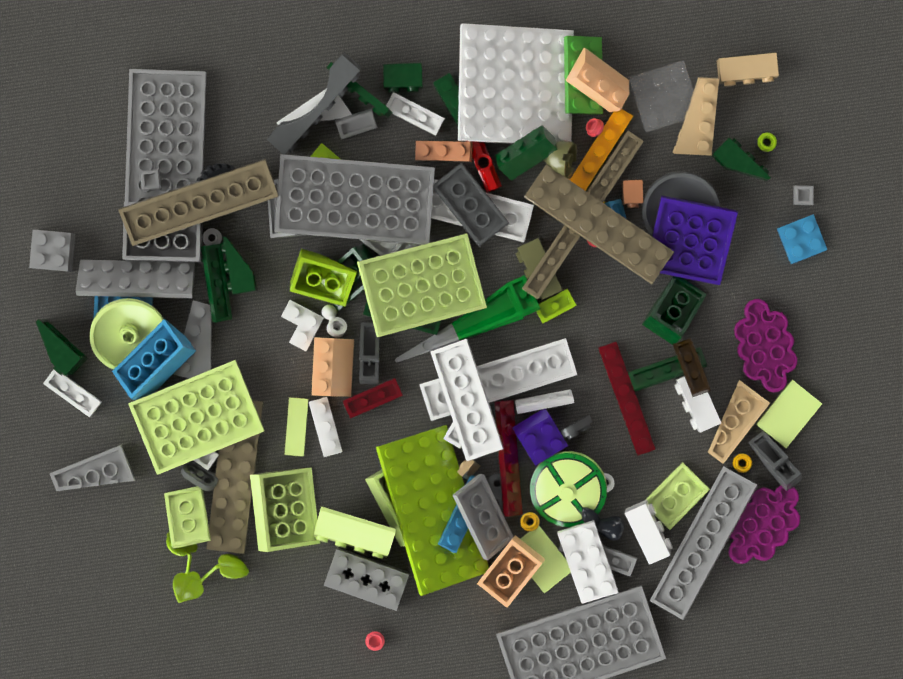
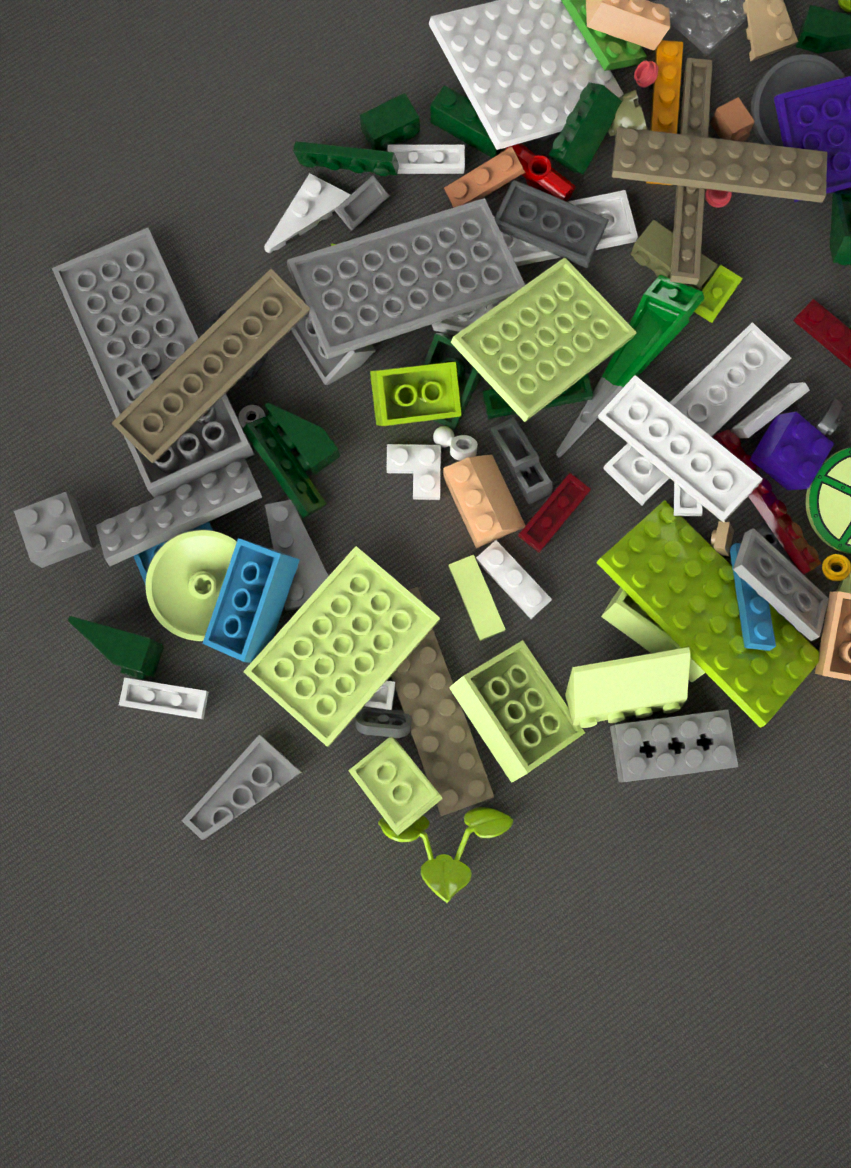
camera: 30 degrees left, 10 degrees down
(288, 132) = (314, 135): dark grey arch -> none
(375, 641) = (726, 825): coral plate -> none

